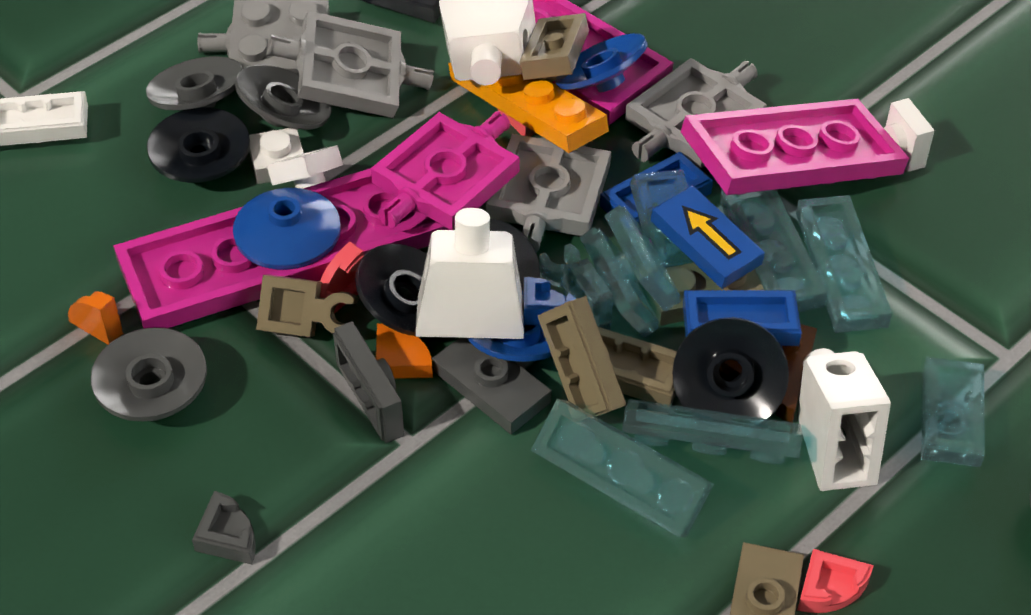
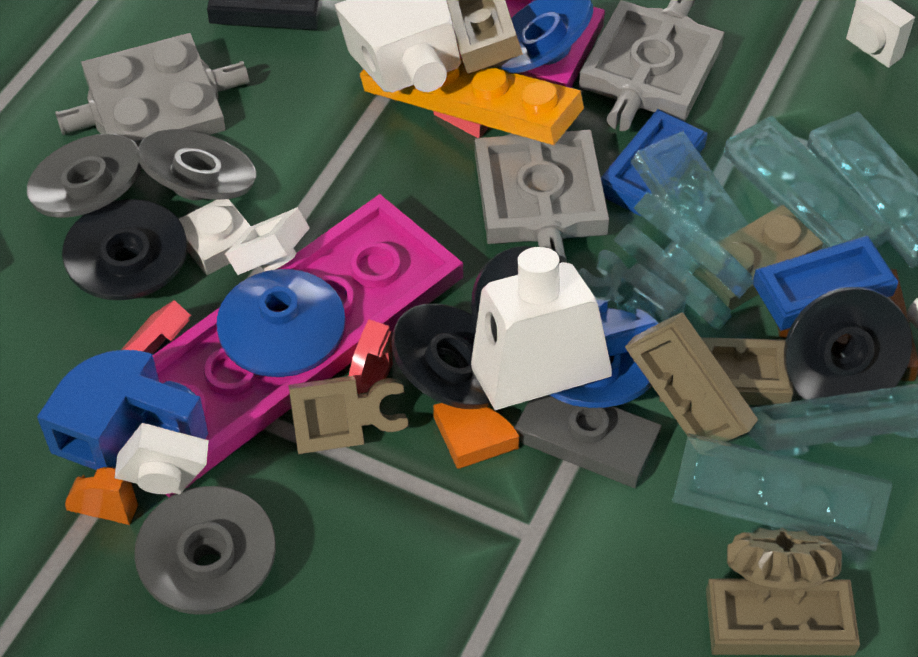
camera: 20 degrees left, 5 degrees up
(127, 244) = (107, 401): none -> blue brick
(137, 294) = (161, 459): none -> white plate
(193, 209) = (159, 326): none -> coral tile
(349, 64) = (255, 104): light grey plate -> none
(370, 382) = (462, 478): dark grey plate -> none
(445, 169) = (432, 204): dark pink plate -> none
(572, 561) = (781, 621): none -> dark tan plate
(593, 515) = (784, 558): none -> dark tan gear
(707, 237) = (746, 200): blue tile -> none
(793, 146) = (777, 73): dark pink plate -> none

